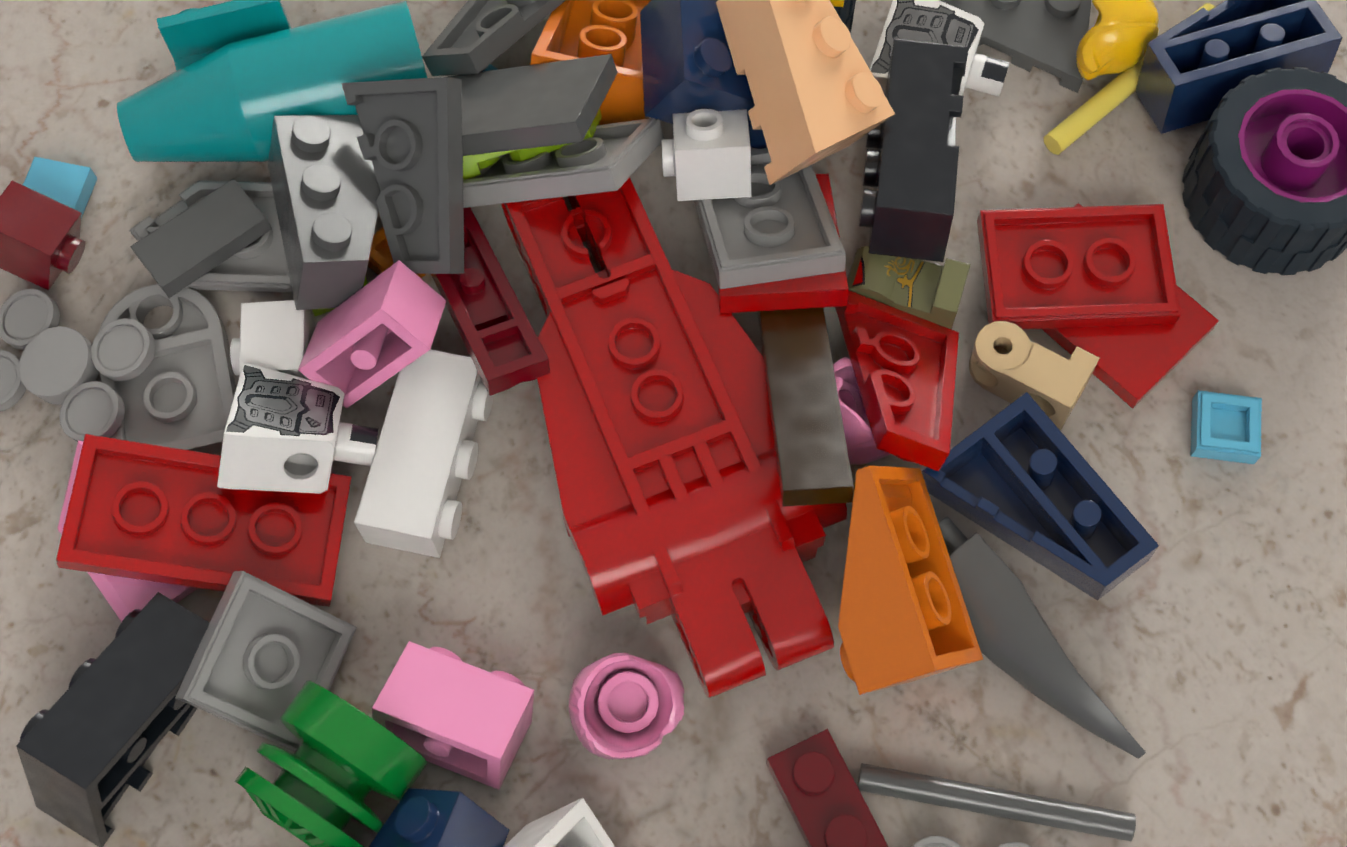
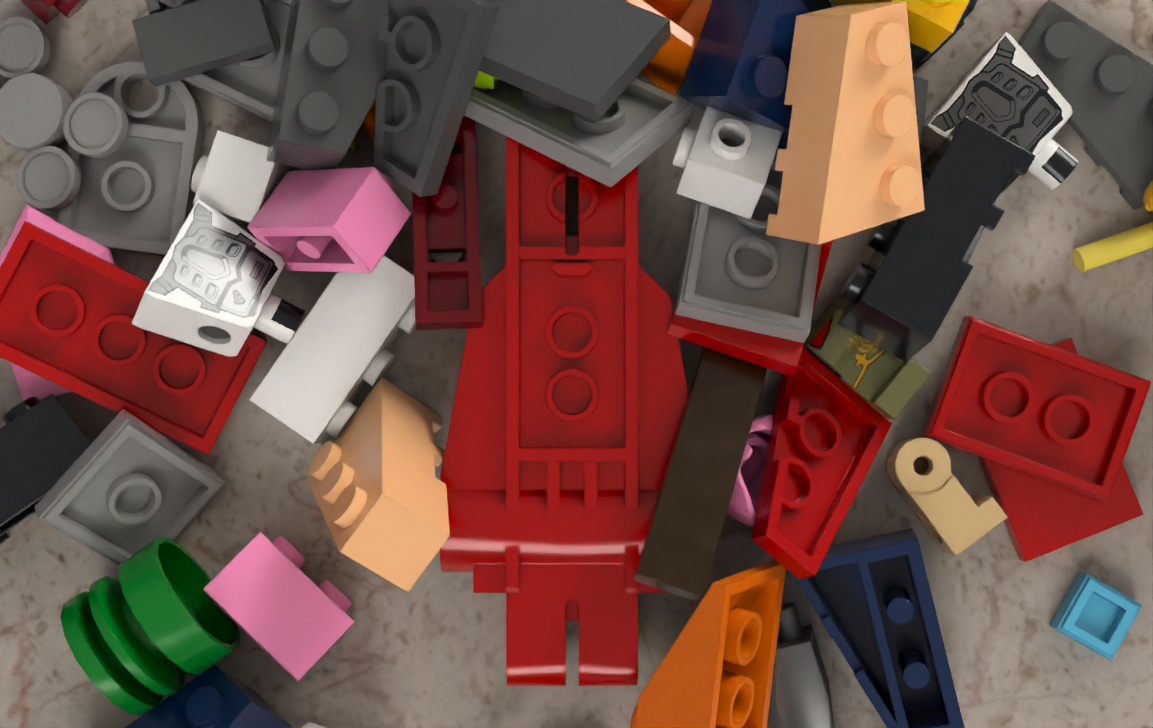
camera: 20 degrees right, 20 degrees up
(511, 543) = (383, 486): none -> light nougat wedge
(625, 705) = (429, 662): bright pink hair -> none

